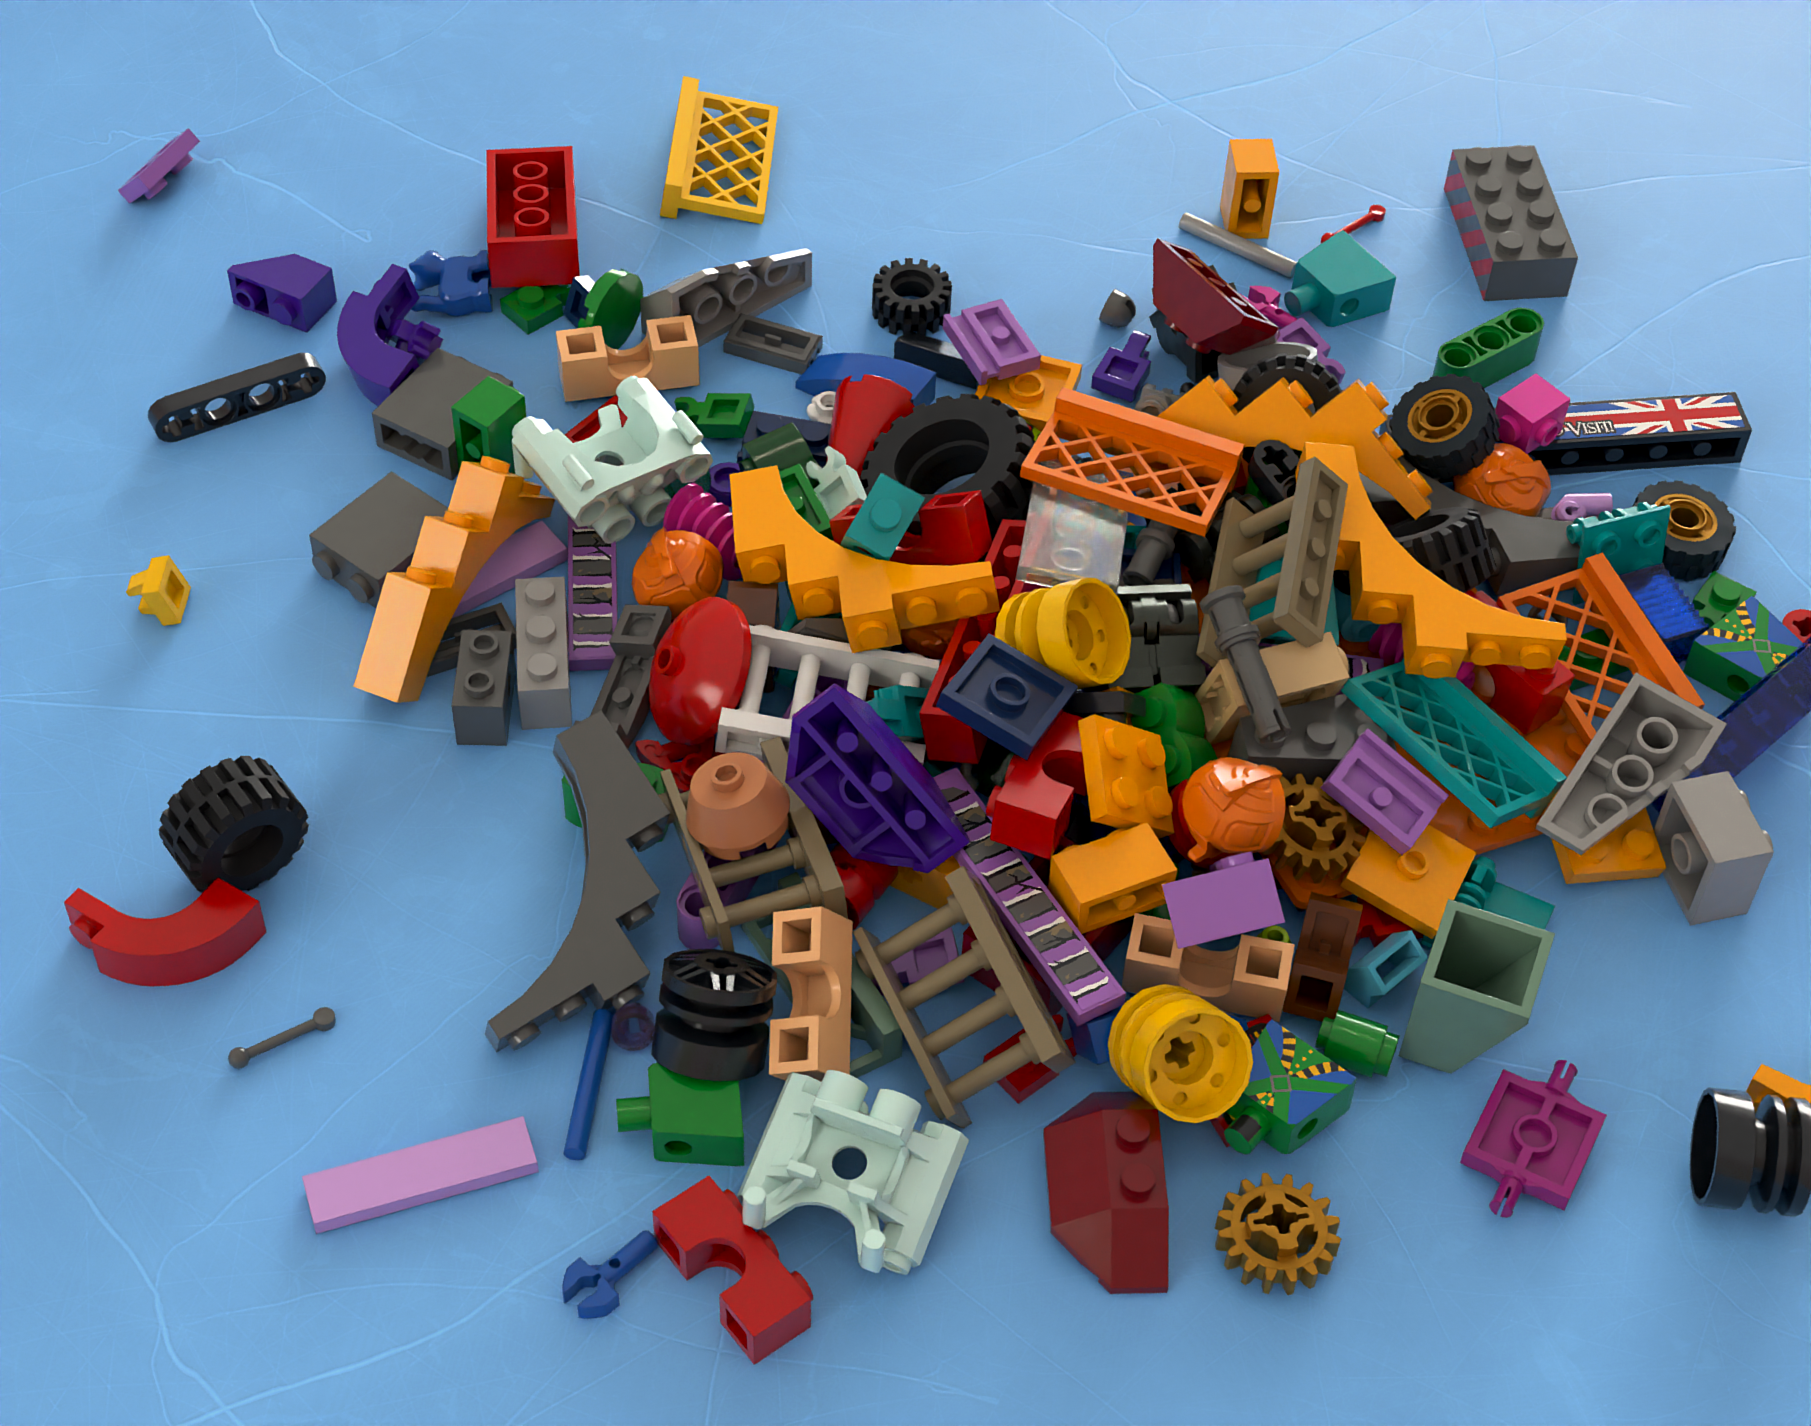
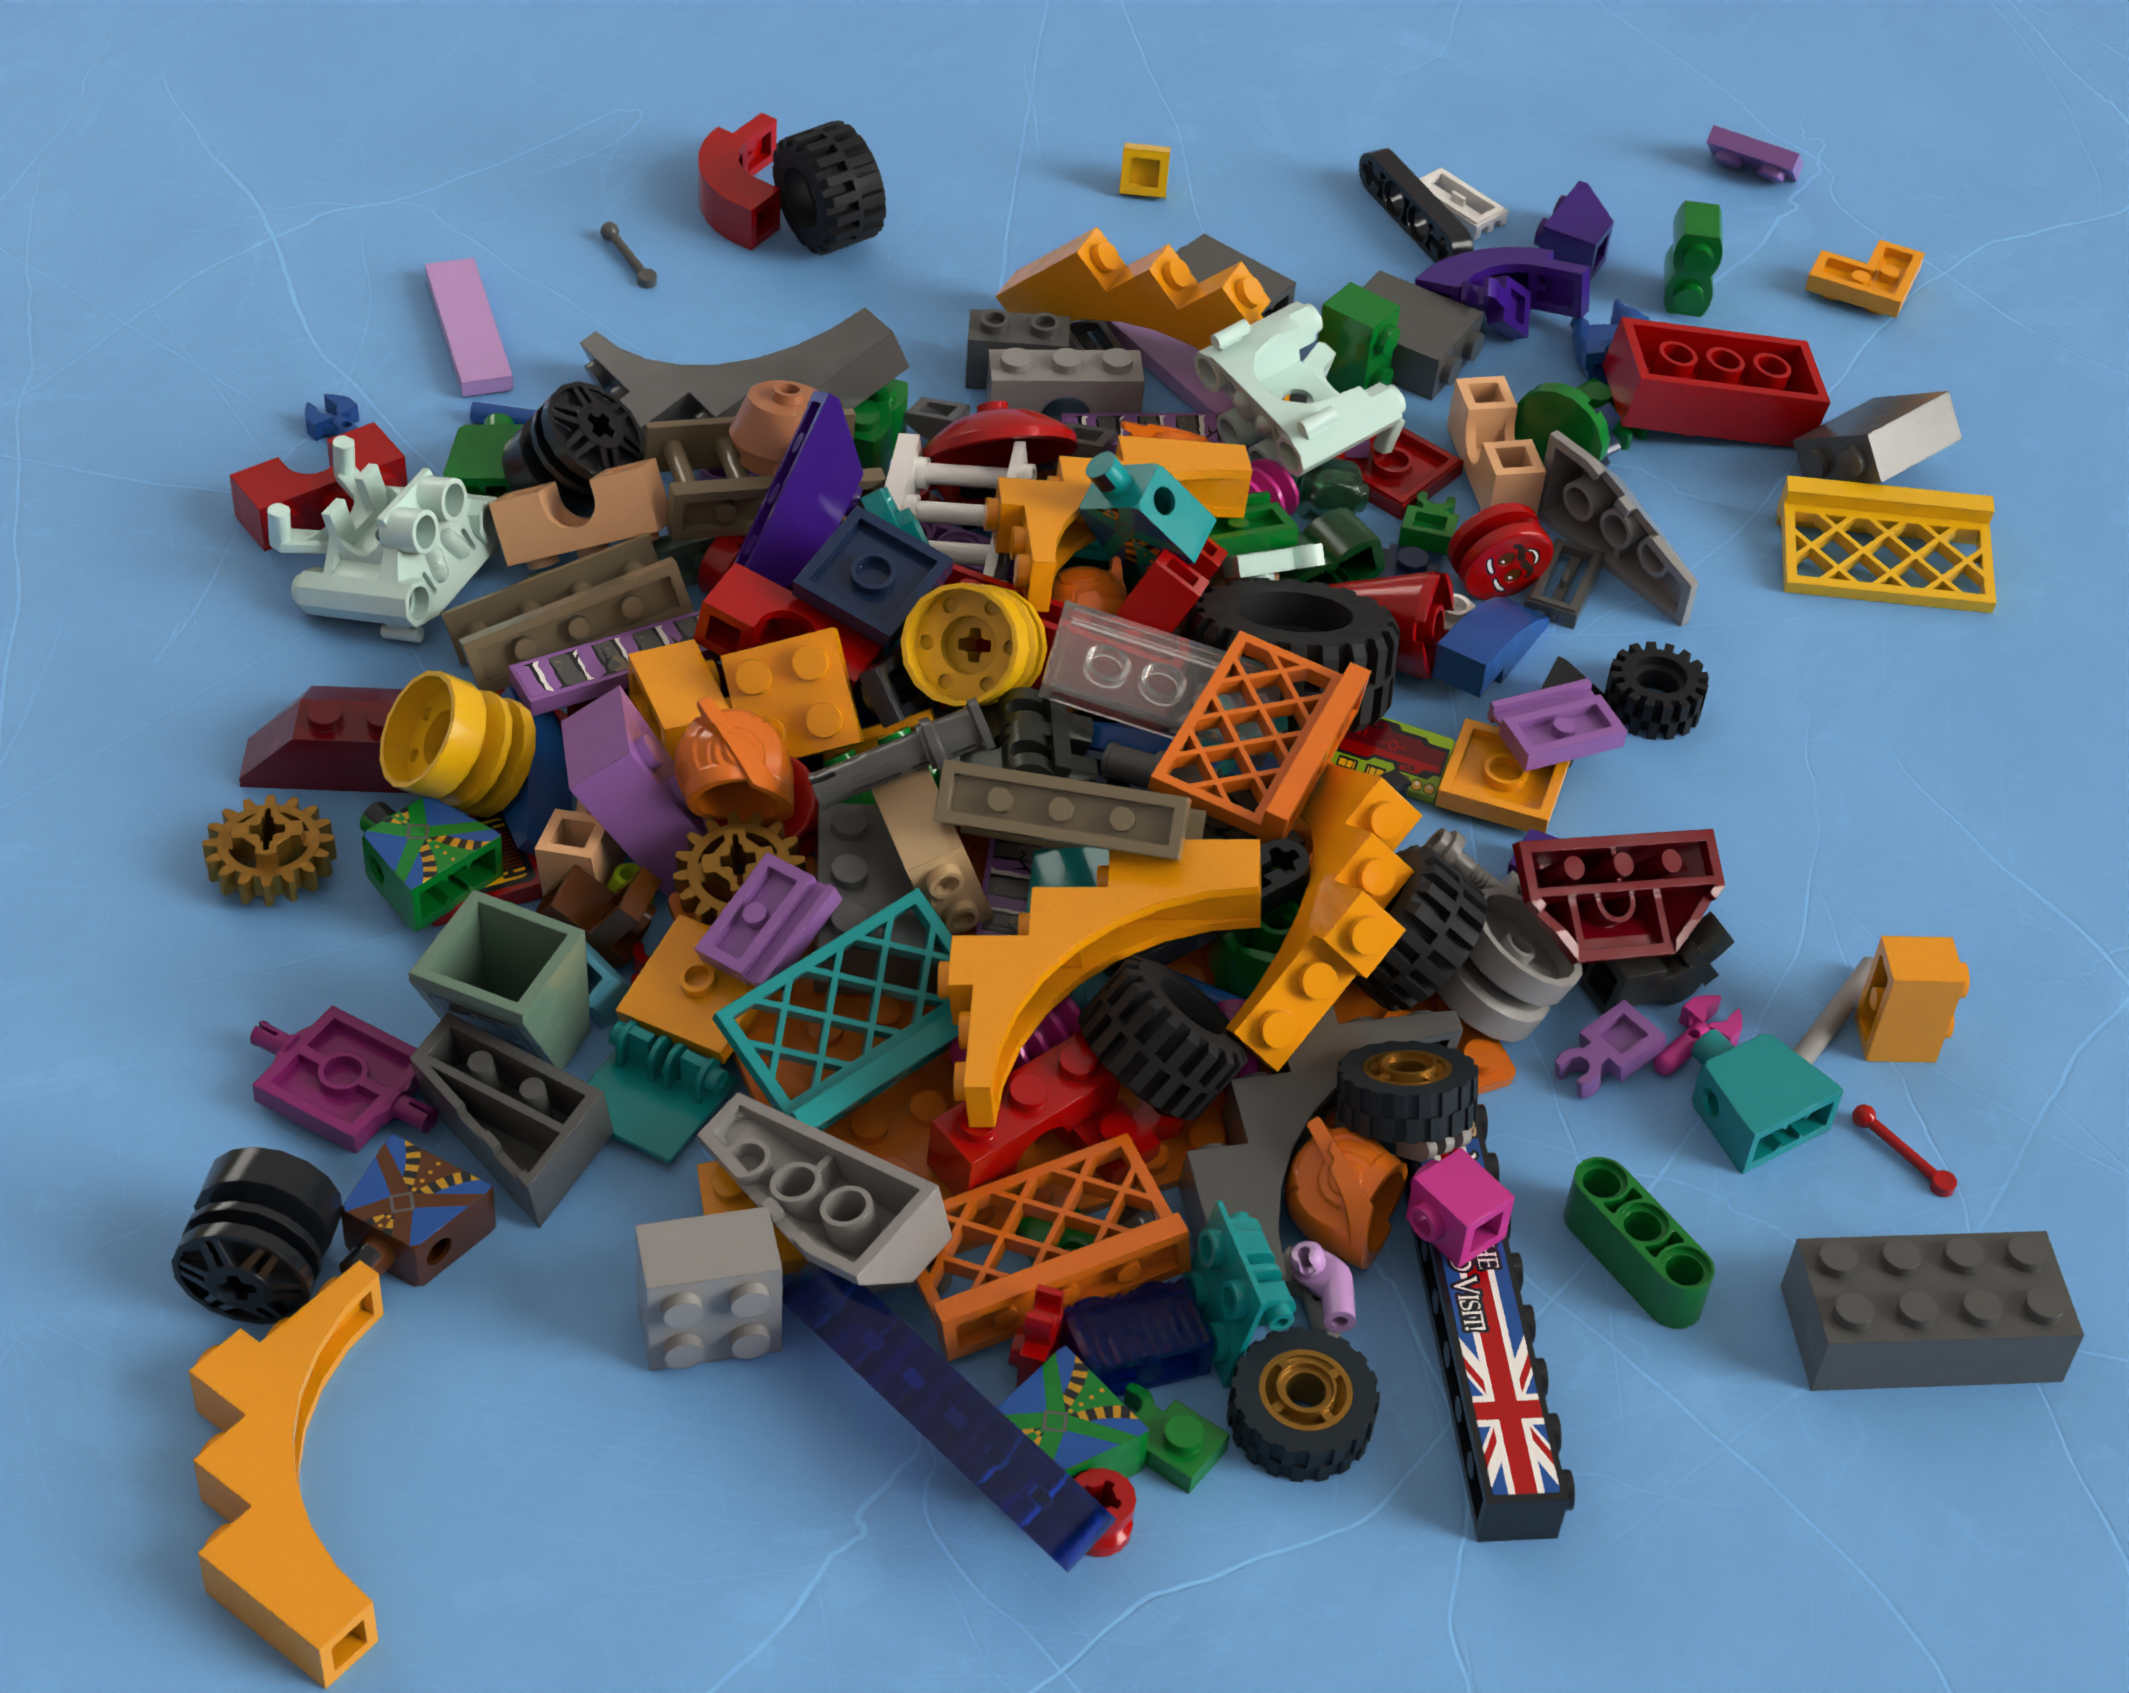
camera: 90 degrees right, 5 degrees down
(211, 368) = (1467, 204): none -> white tile
(355, 119) = (1876, 285): none -> light orange plate
(355, 209) = (1693, 258): none -> green brick
(611, 130) = (1879, 438): none -> dark grey brick
(773, 362) = (1500, 551): none -> red head
(1579, 989) = (512, 1112): none -> dark grey wedge
(1670, 1066) = (414, 1214): none -> reddish brown torso
(1692, 653) = (1040, 1333): none -> red plate

